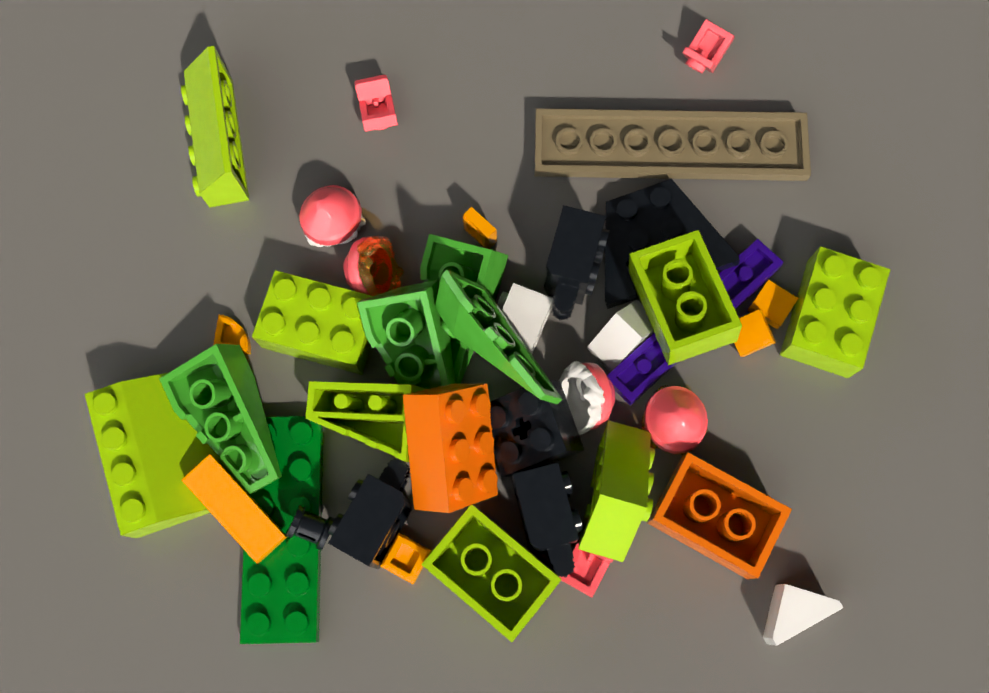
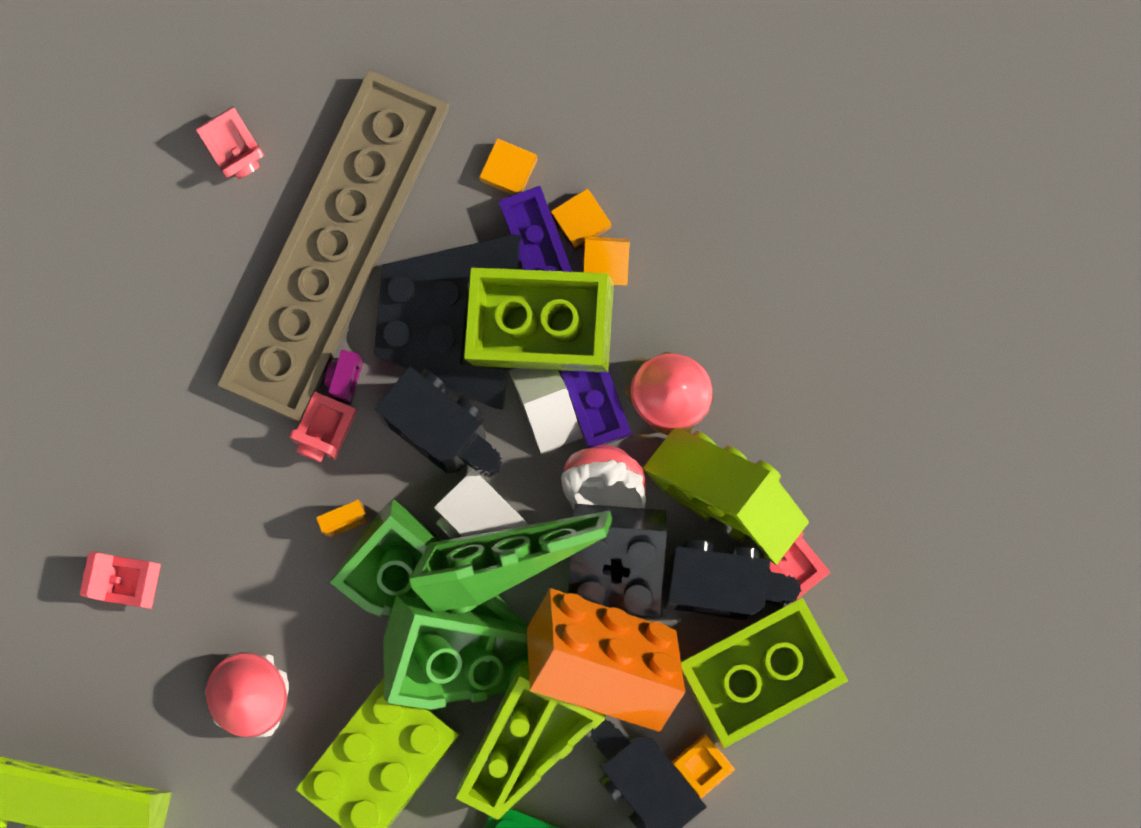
camera: 70 degrees left, 5 degrees up
(372, 266) = (339, 669): hair -> none
(537, 189) = (323, 428): none -> coral bracket
(580, 188) = (343, 376): none -> magenta plate
(719, 516) = (799, 394): orange brick -> none
(785, 237) = (508, 167): none -> light orange tile
(795, 611) = (931, 361): white slope -> none
(835, 312) = (623, 157): lime brick -> none

